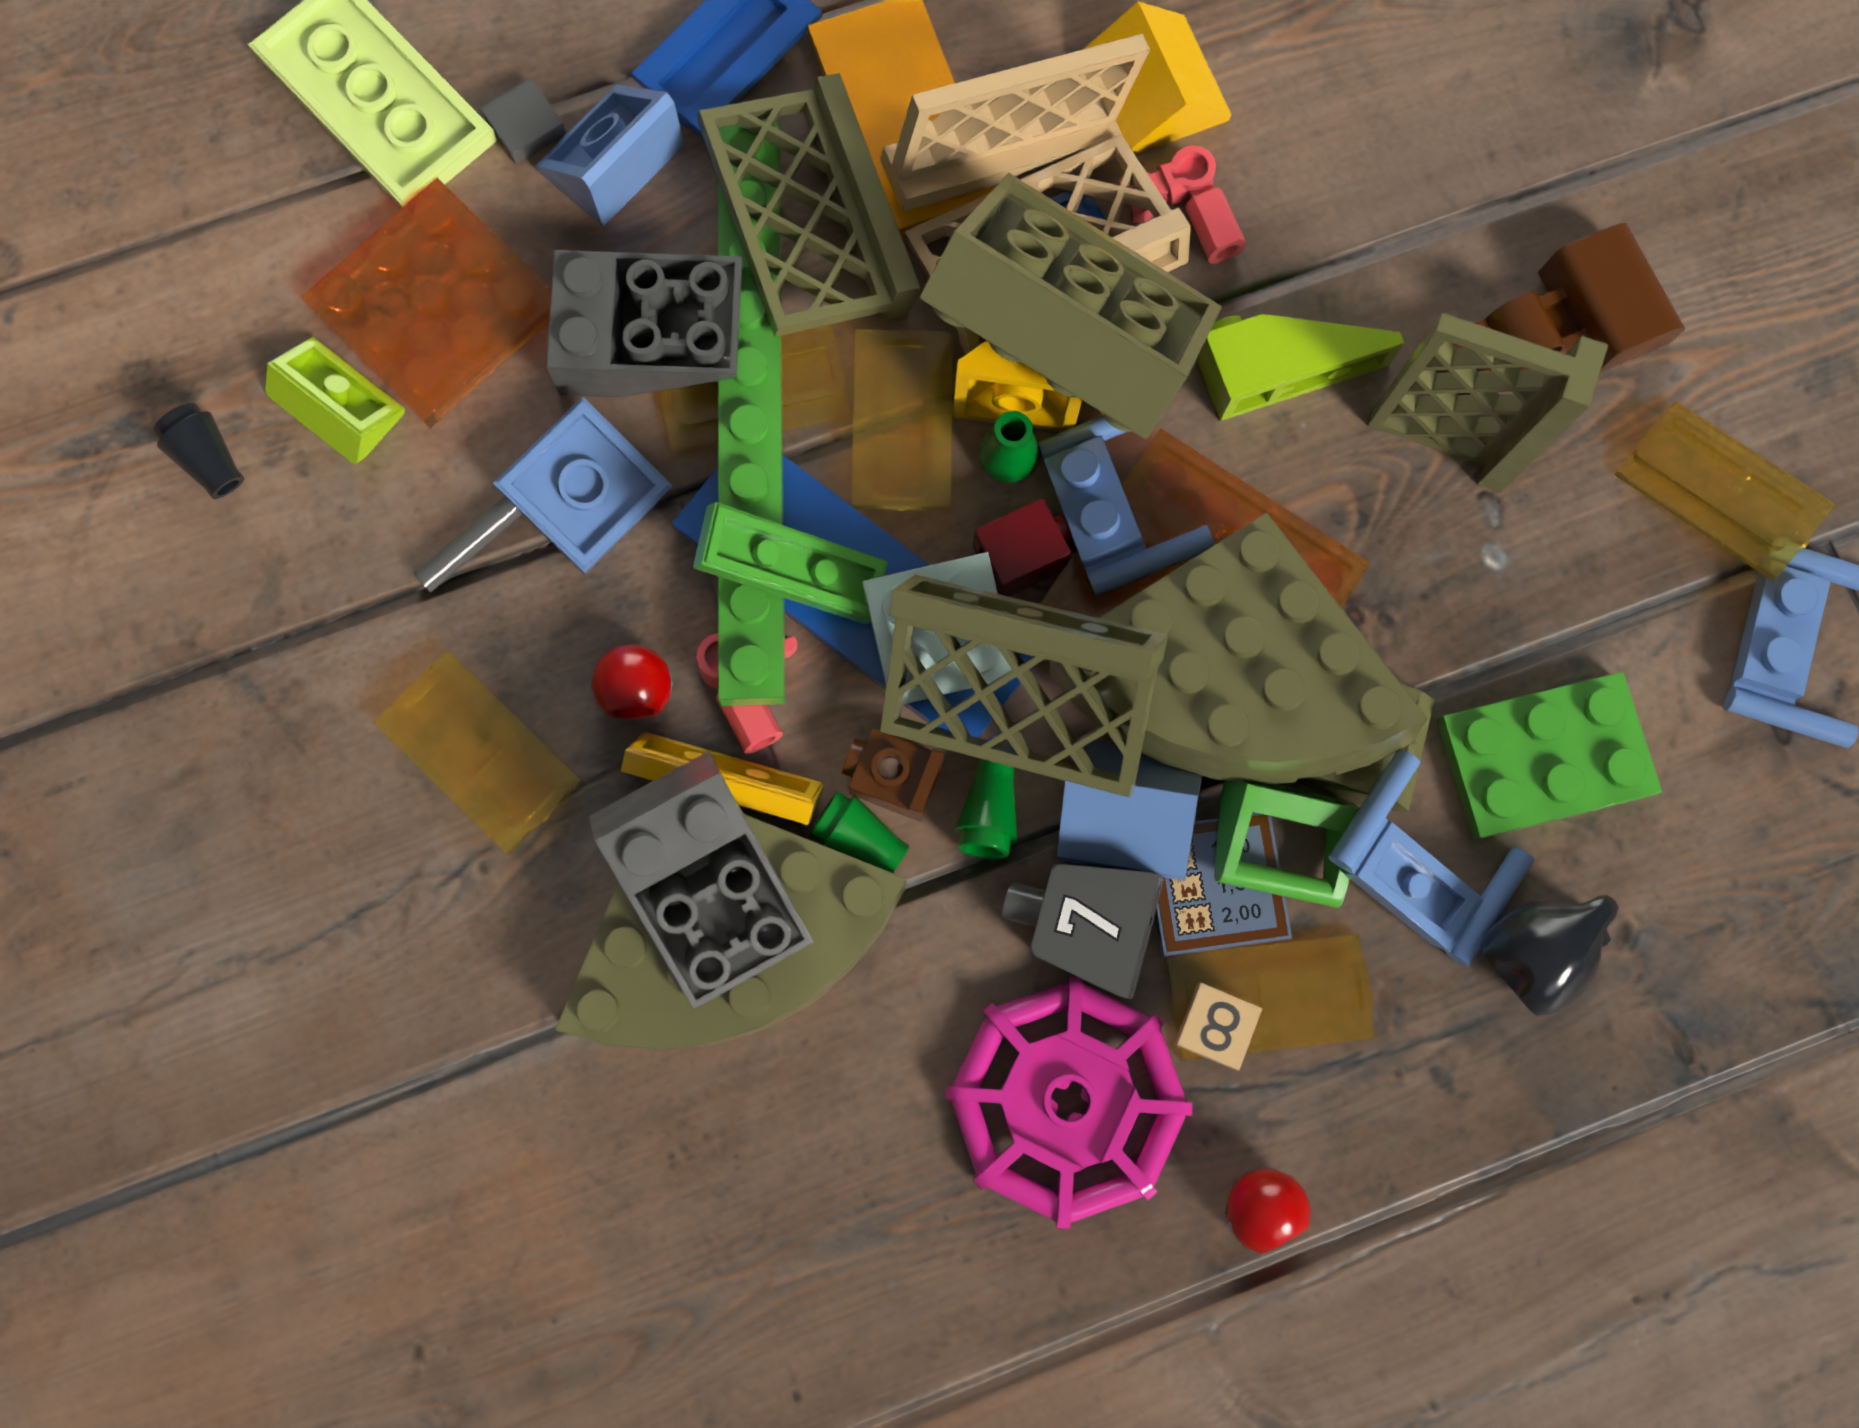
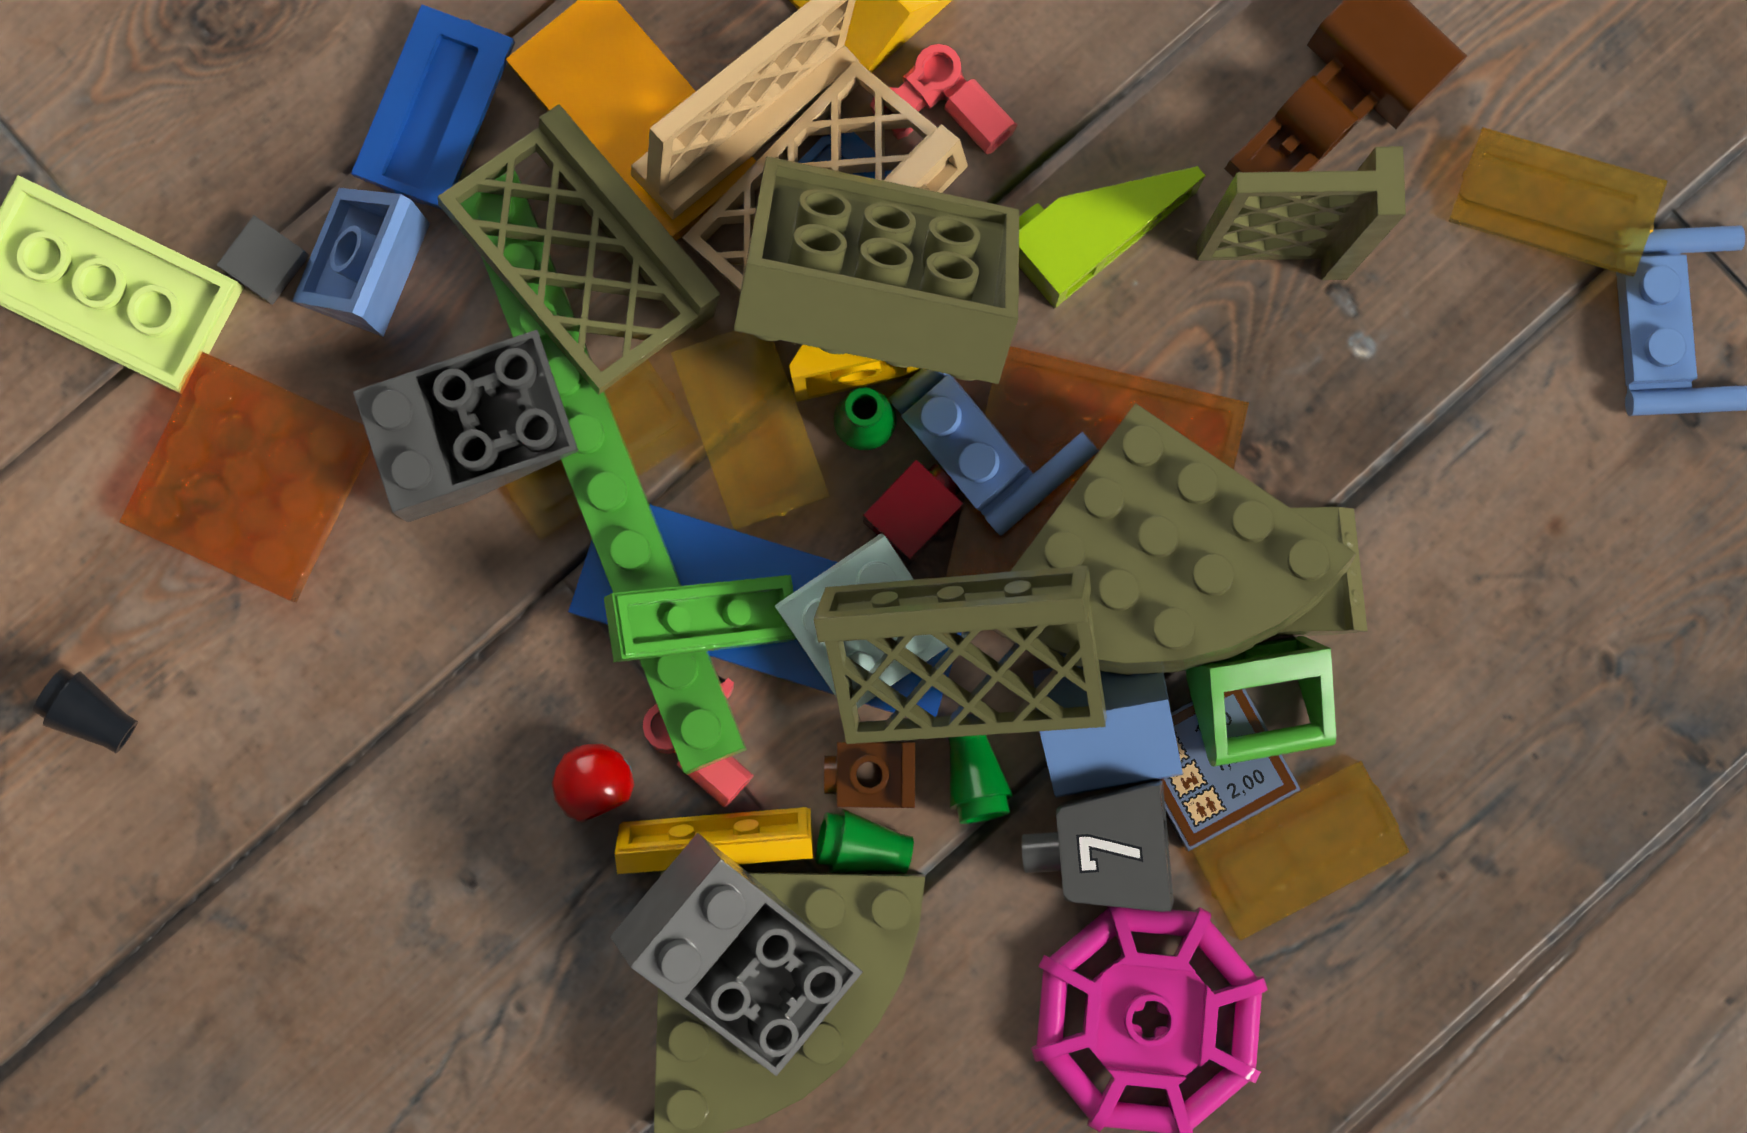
camera: 15 degrees left, 5 degrees up
(331, 399) = (190, 610): lime slope -> none
(467, 544) = (395, 674): dark grey piece -> none
(477, 752) = (471, 902): clear yellow piece -> none
(583, 485) = (469, 607): medium blue tile -> none
(1218, 1026) = (1262, 900): tan tile -> none
(1267, 1209) = (1367, 1051): red piece -> none
(1413, 881) = (1395, 695): medium blue plate -> none
(1548, 756) = (1479, 523): bright green plate -> none
(1550, 950) = (1542, 715): black piece -> none

